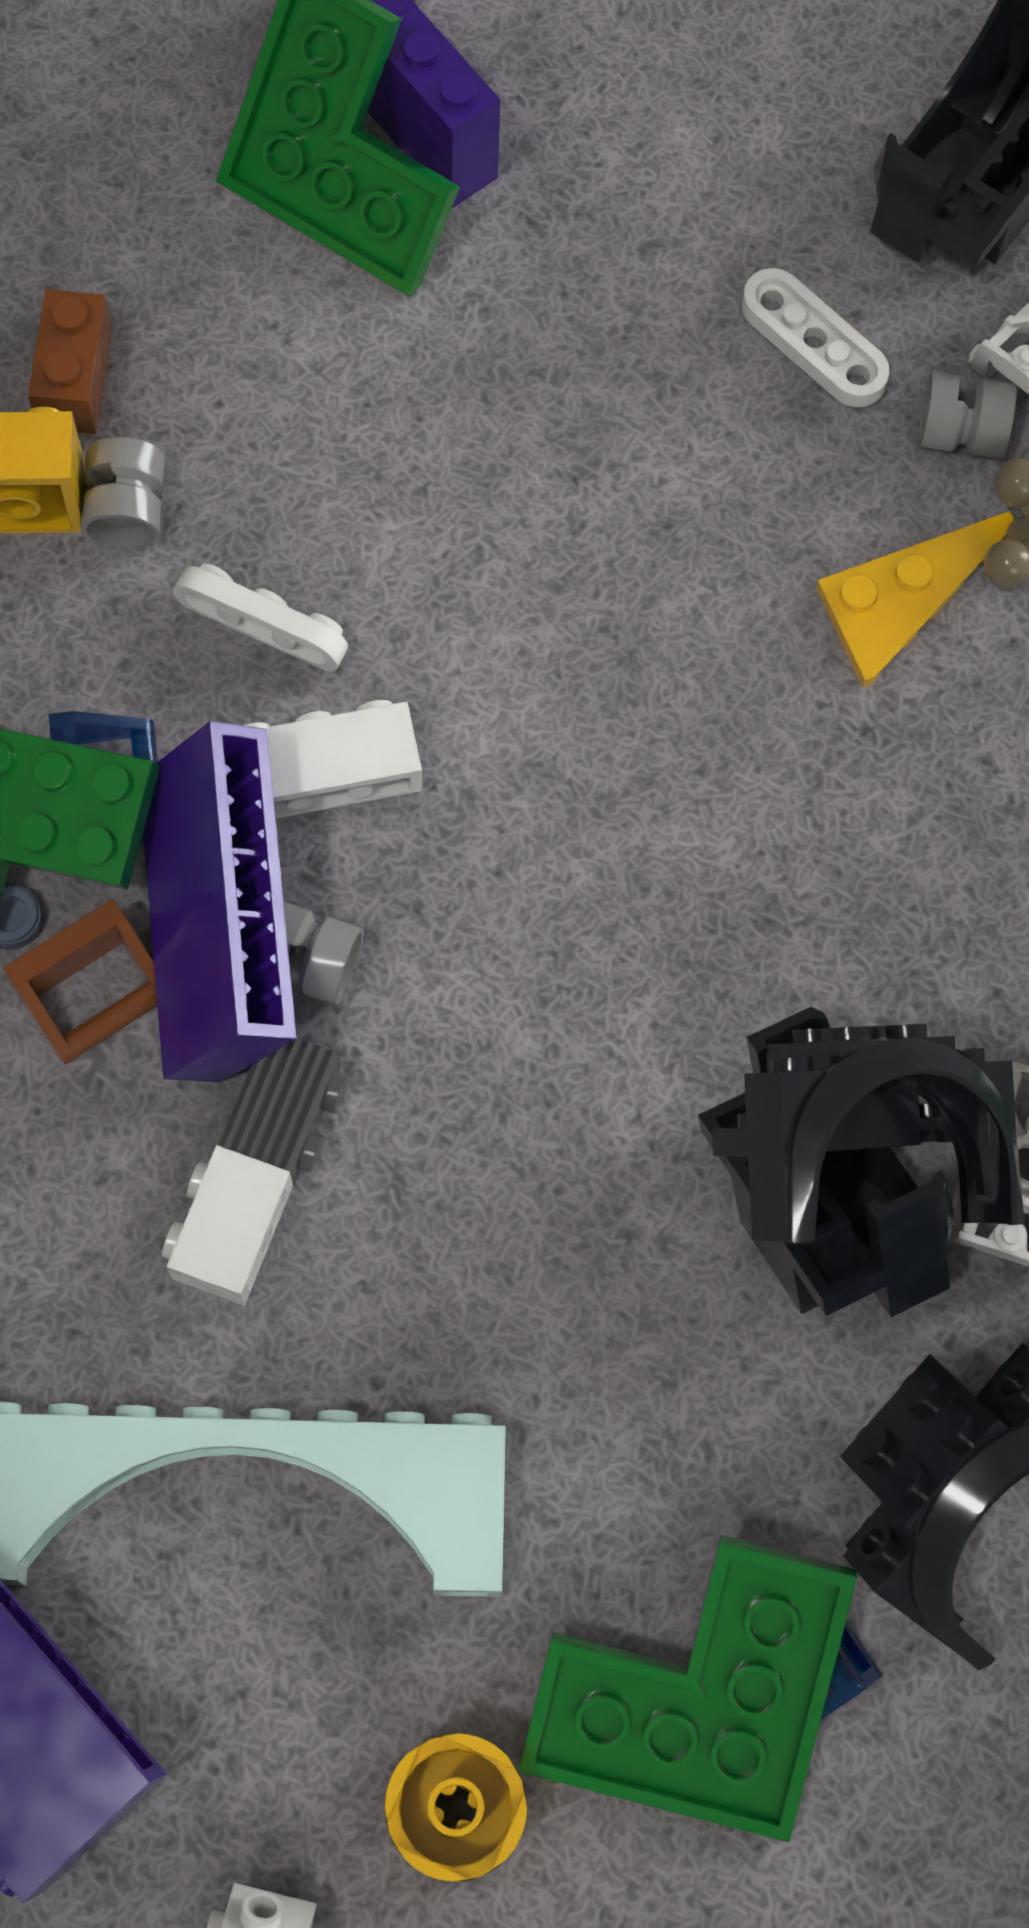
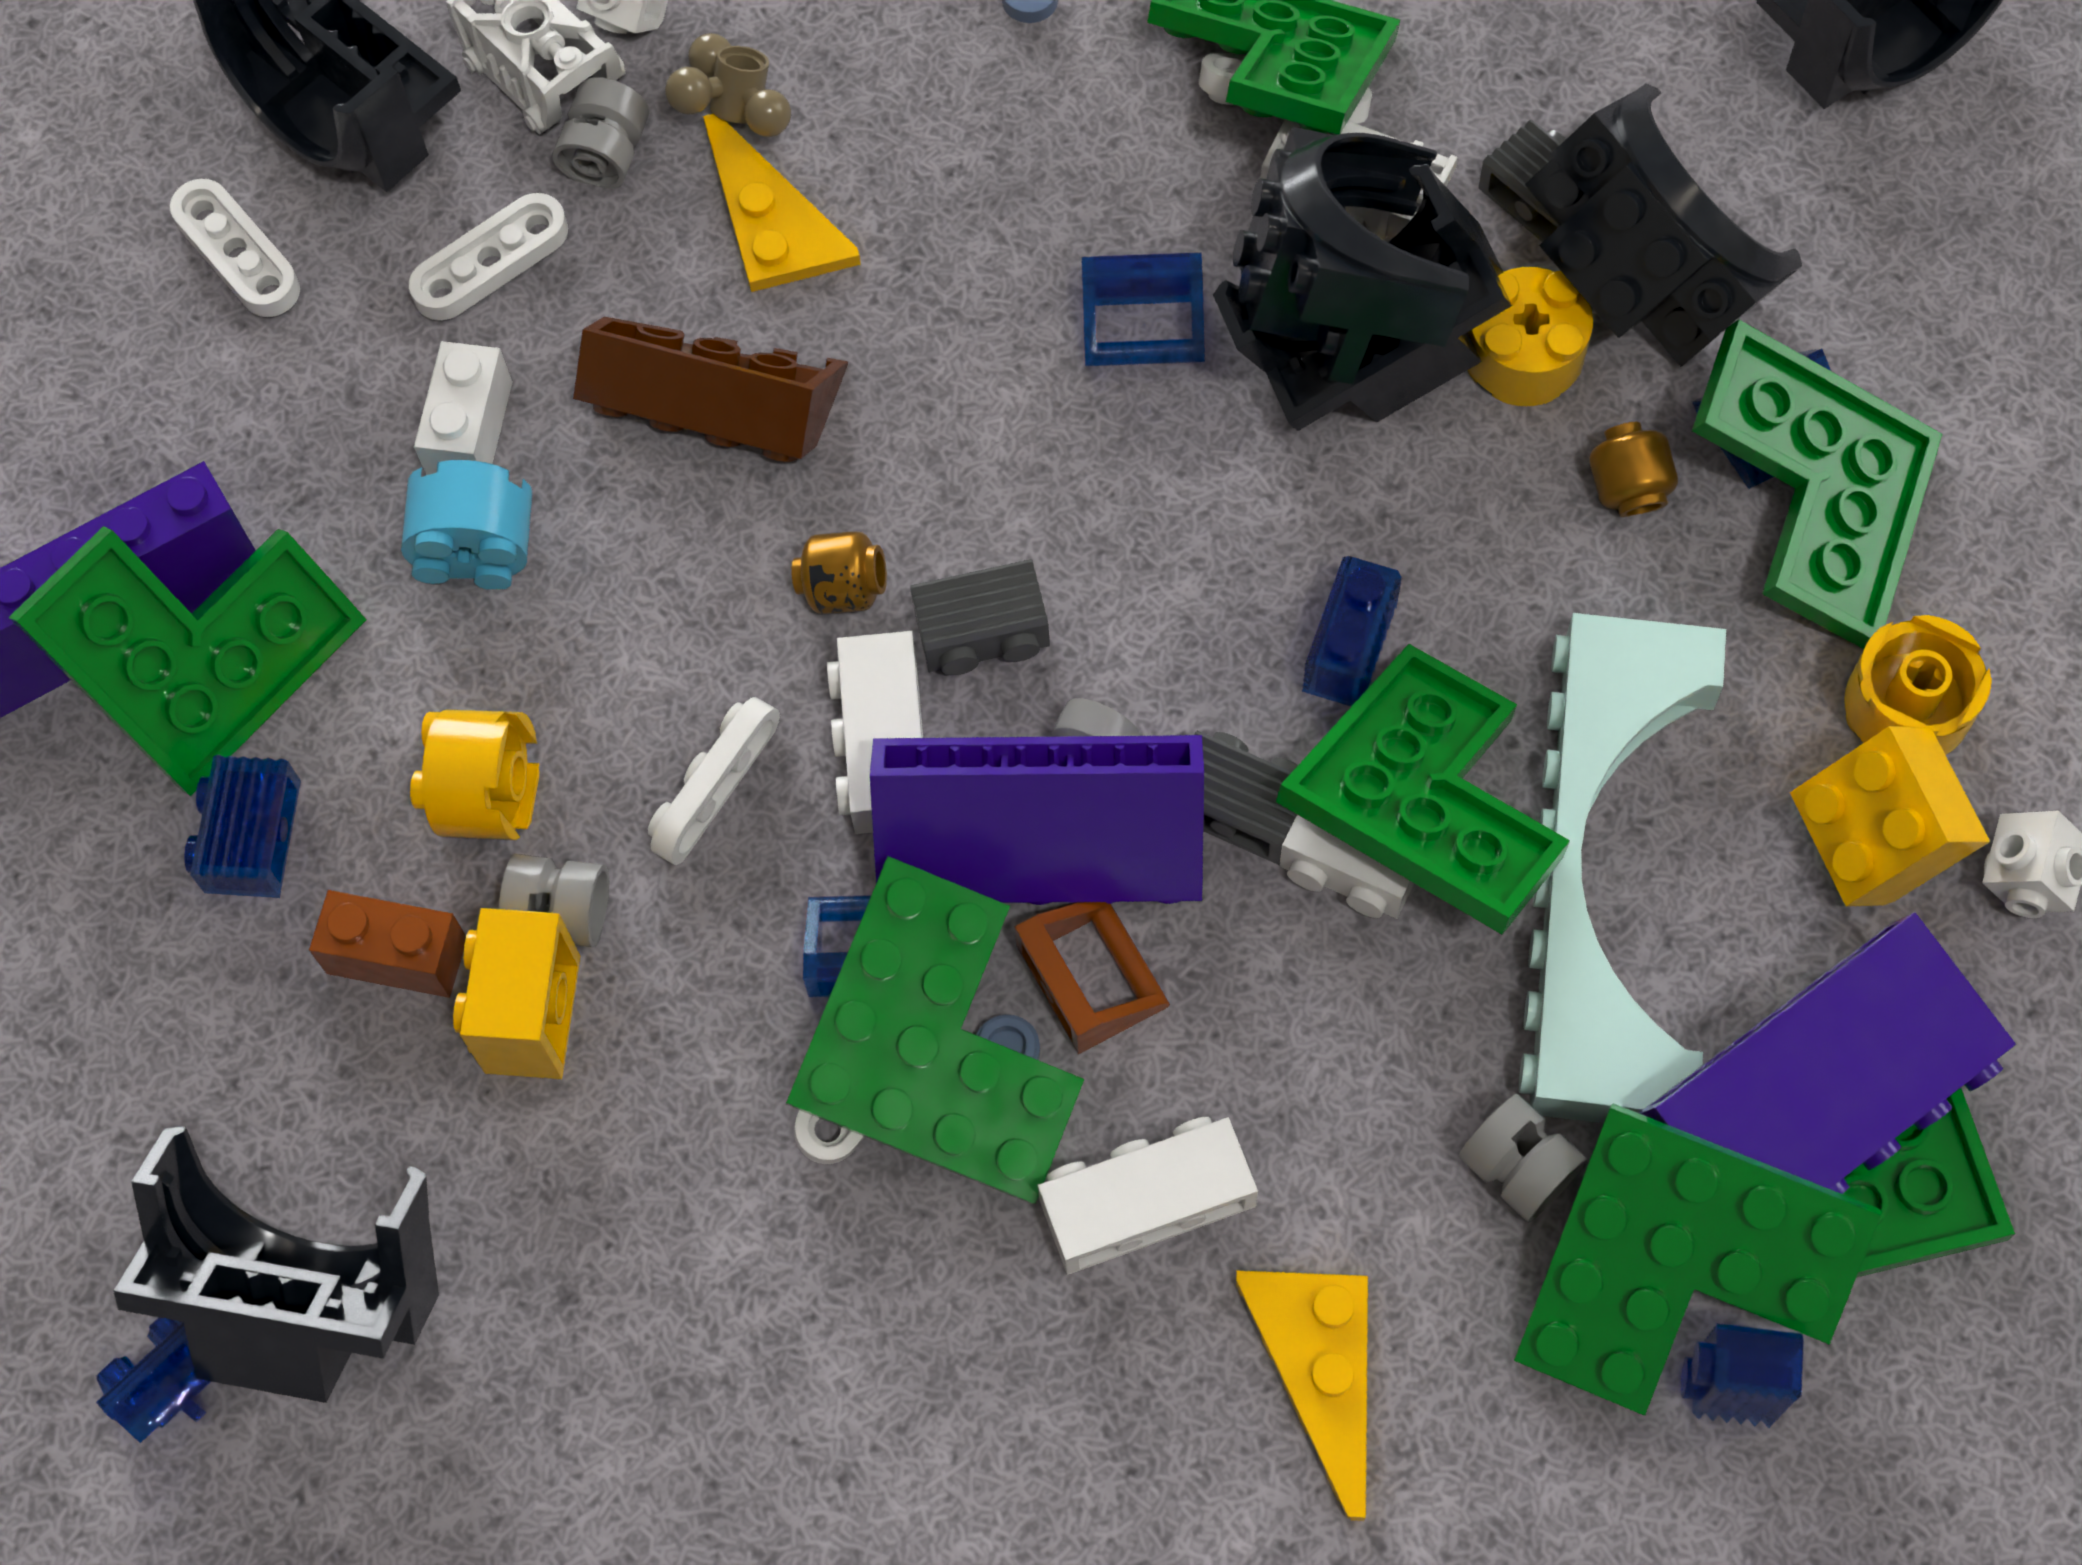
camera: 75 degrees left, 5 degrees down
(181, 226) = (243, 826): none -> clear blue brick
(237, 404) = (476, 774): none -> yellow brick
(276, 1244) = (1398, 792): none -> green plate
(288, 1772) = (1889, 816): none -> yellow brick
(457, 839) = (981, 617): none -> dark grey brick
(471, 1202) = (1351, 631): none -> clear blue brick
(492, 703) = (840, 572): none -> pearl gold head
(499, 354) = (466, 524): none -> medium azure brick
(628, 338) = (463, 405): none -> white brick
(687, 557) = (706, 387): none -> reddish brown wedge
(700, 1492) = (1633, 469): none -> pearl gold head
(799, 95) = (229, 229): none -> white plate
(827, 1396) = (1536, 343): none -> yellow brick
(868, 954) = (1143, 281): none -> clear blue tile

